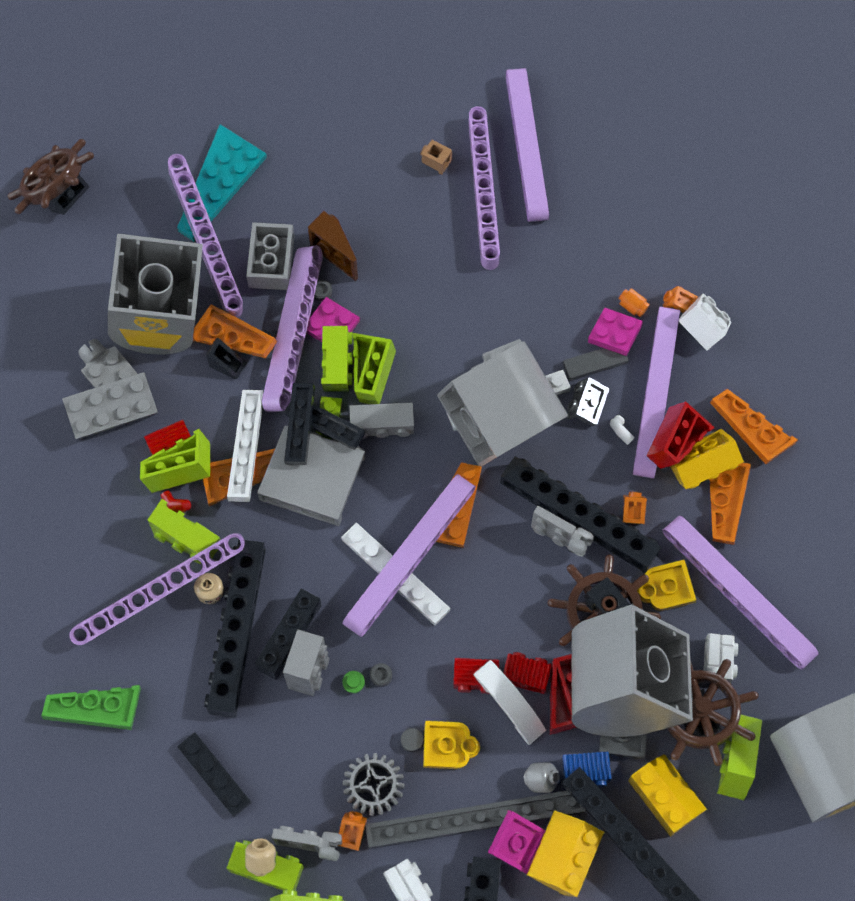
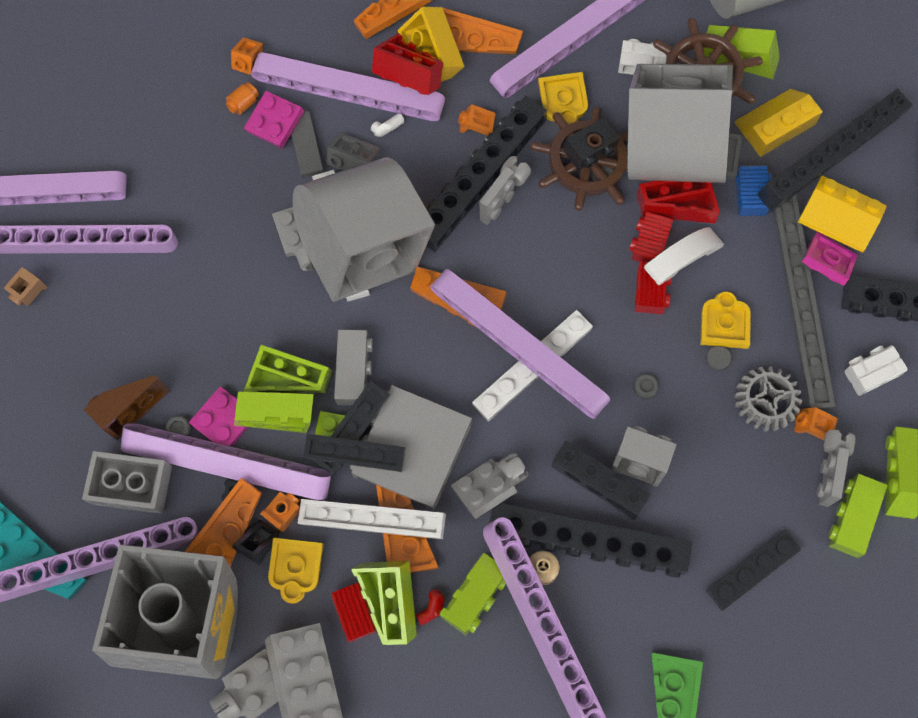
camera: 80 degrees left, 5 degrees up
(206, 392) = (295, 568): none -> yellow plate
(245, 372) = (283, 519): none -> orange brick
(260, 857) = (860, 512): tan head -> none
(280, 540) = (490, 484): none -> light grey plate
(353, 682) = (654, 415): bright green plate -> none
(541, 777) = (763, 231): light grey head -> none
(705, 321) = (276, 29): white slope -> none

